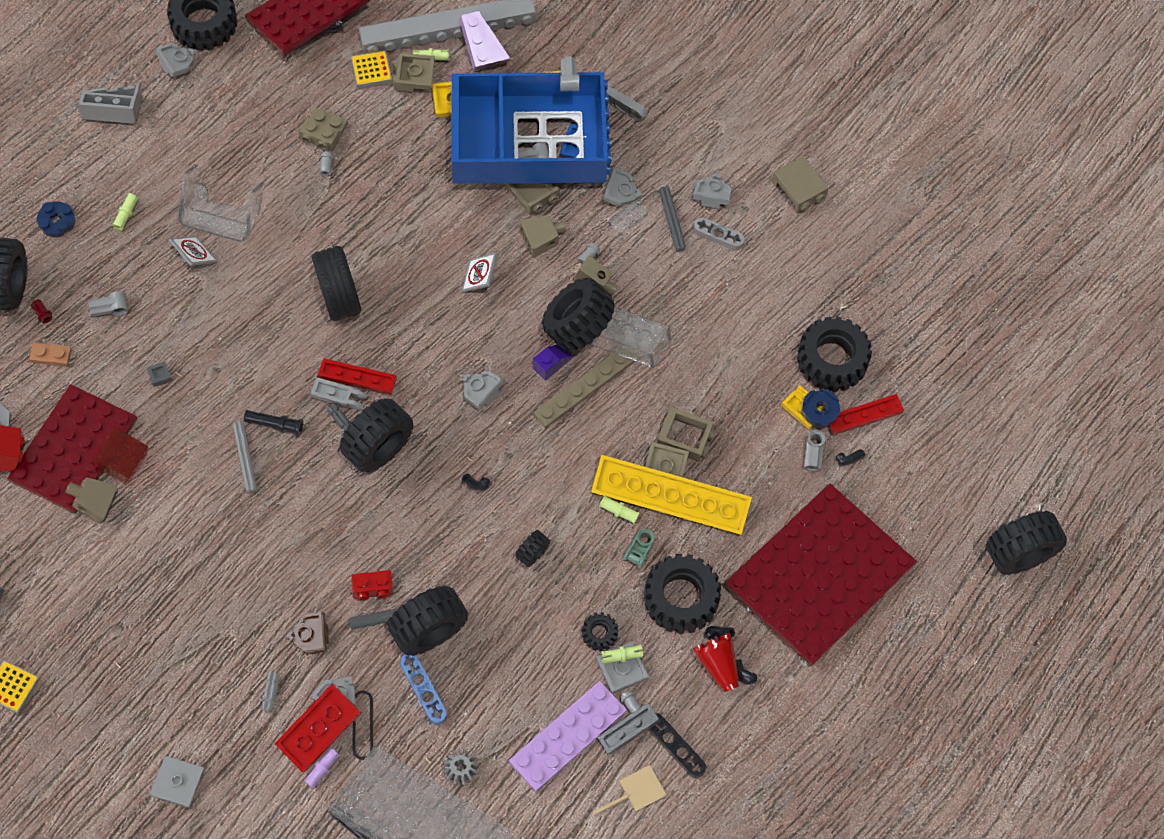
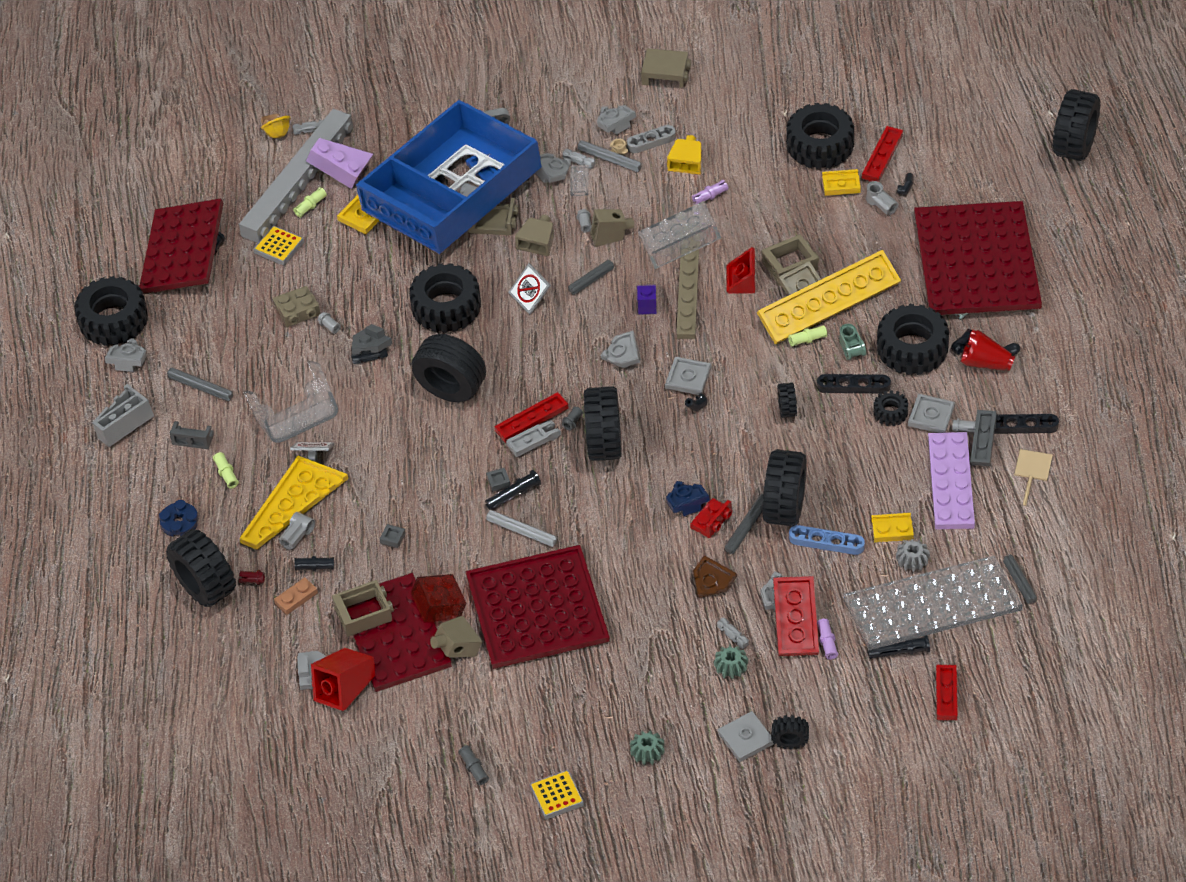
camera: 40 degrees left, 15 degrees down
(48, 401) = (359, 594): none -> dark tan window
(88, 342) = (313, 563): none -> black pin
(98, 713) = (647, 747): none -> sand green gear
(138, 162) = (191, 437): none -> dark grey hinge
(145, 276) = (297, 491): none -> yellow wing
(176, 529) = (537, 606): none -> dark red plate
(192, 128) = (200, 384): none -> dark grey axle
(198, 814) = (790, 732): none -> black tyre
(241, 719) = (730, 661): none -> sand green gear
(276, 402) = (498, 479): none -> dark grey plate
(320, 216) = (368, 356): none -> black axle
(328, 205) = (370, 338): none -> dark grey plate
(338, 416) = (556, 450): dark grey axle -> none
(371, 725) = (831, 596): black piece -> none
(373, 551) = (686, 498): none -> dark blue plate
(413, 72) = (314, 219): dark tan plate -> none
(415, 202) = (450, 314): none -> black tyre
(479, 728) = (892, 527): none -> yellow plate
(498, 454) = (688, 376): none -> light grey plate
(529, 304) = (590, 277): none -> dark grey axle
(569, 78) = (444, 118): light grey piece -> none
(578, 314) = (650, 250): black tyre -> none
(604, 581) = (853, 380): none -> black beam
(622, 654) = (924, 402): yellowish green pin -> none
(638, 411) = (742, 273): none -> red slope
(649, 199) = (578, 158): none -> light grey axle
(687, 213) = (619, 146): none -> tan plate
(701, 320) = (710, 192): none -> lavender pin
(722, 272) = (685, 156): none -> yellow torso
(821, 418) = (849, 177): dark blue plate -> none

